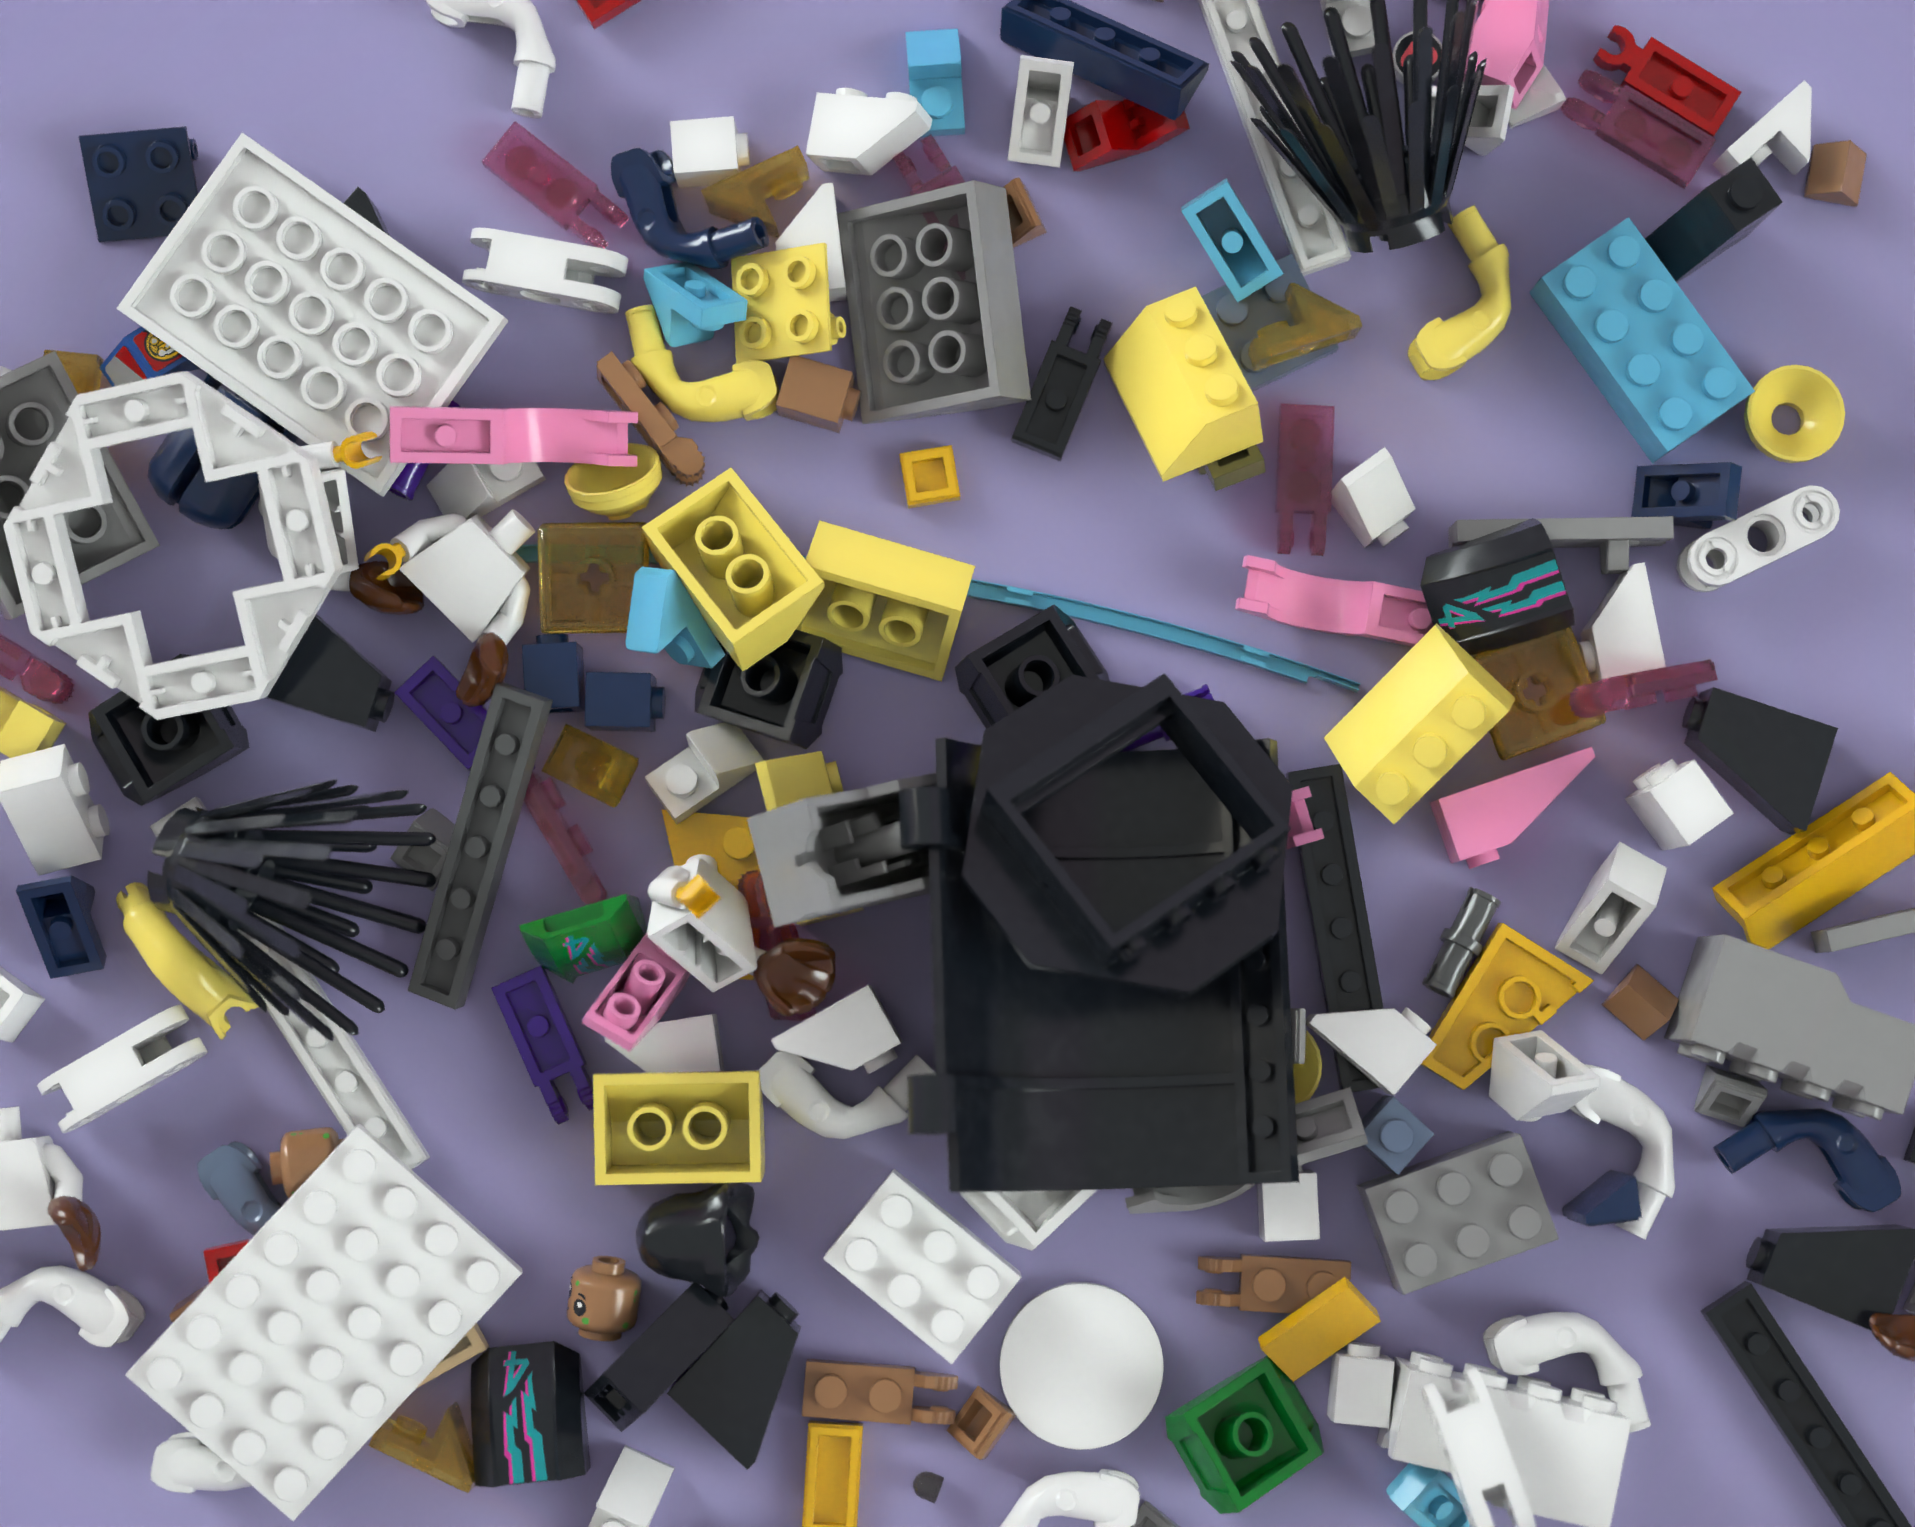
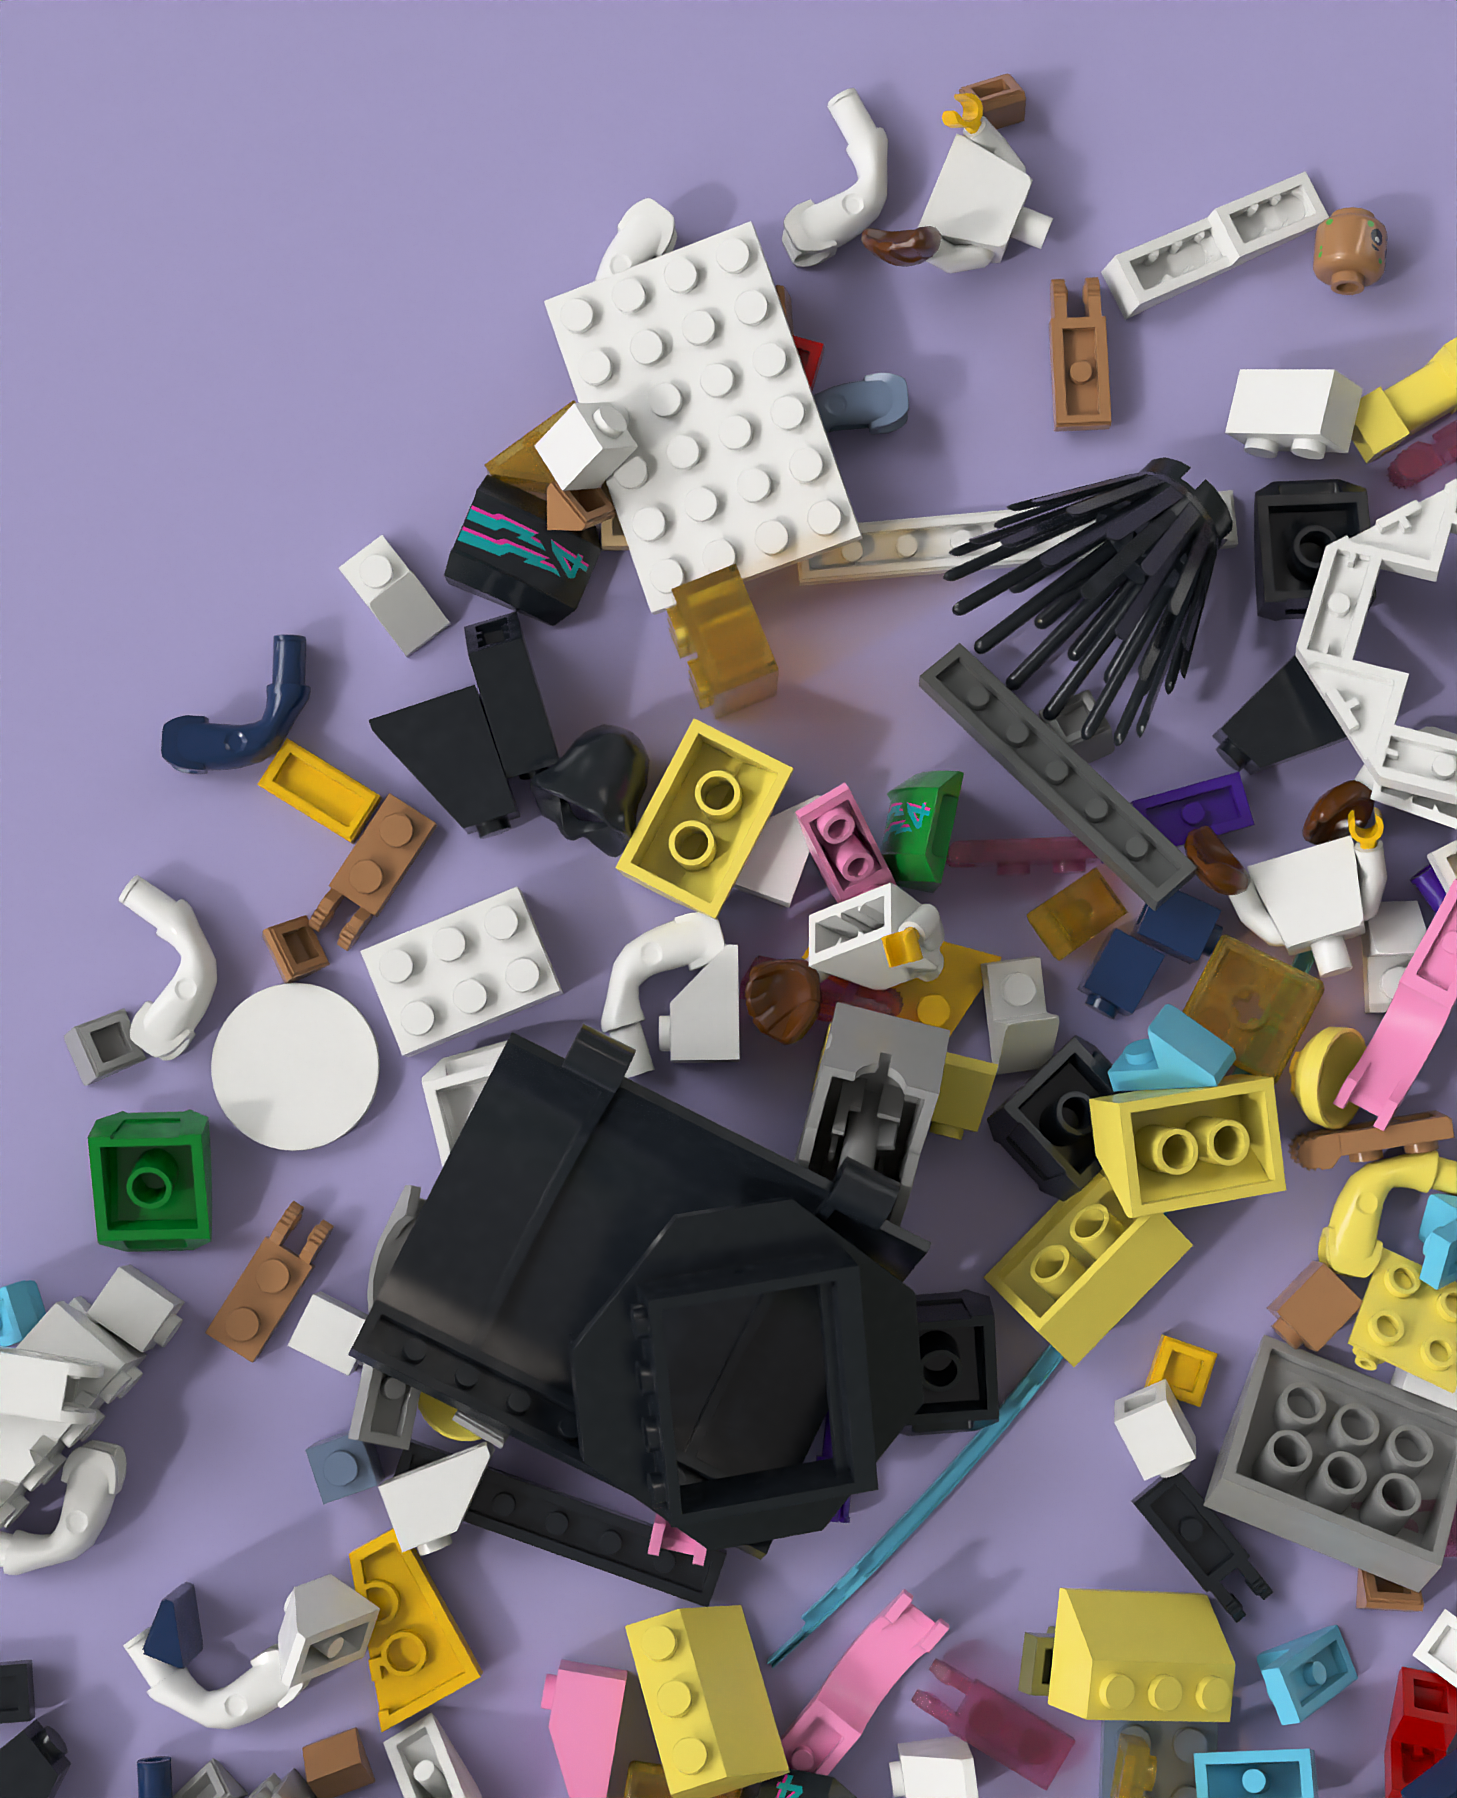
camera: 120 degrees right, 0 degrees up
(63, 925) = (1183, 369): dark blue slope -> none
(101, 1017) = (1079, 361): none -> medium nougat hinge
(122, 1068) = (1025, 356): white piece -> none
(178, 963) = (1093, 452): light yellow piece -> none
(301, 1155) = (861, 472): medium nougat head -> none
(403, 1411) = (586, 445): none -> white brick
(459, 1391) = (577, 508): none -> medium nougat slope
(512, 1195) = (725, 641): none -> clear yellow brick
(544, 1038) = (851, 742): dark purple hinge -> none
(604, 1299) = (588, 673): medium nougat head -> none
(927, 1485) = (266, 872): clear smoke piece -> none
(991, 470) = (1155, 1431): none -> white brick
(1121, 245) = (1306, 1673): none -> medium azure slope
(1319, 1329) = (208, 1299): yellow tile -> none
(1457, 1212) = (242, 1486): light grey brick -> none
(1461, 942) = (483, 1627): dark grey pin -> none

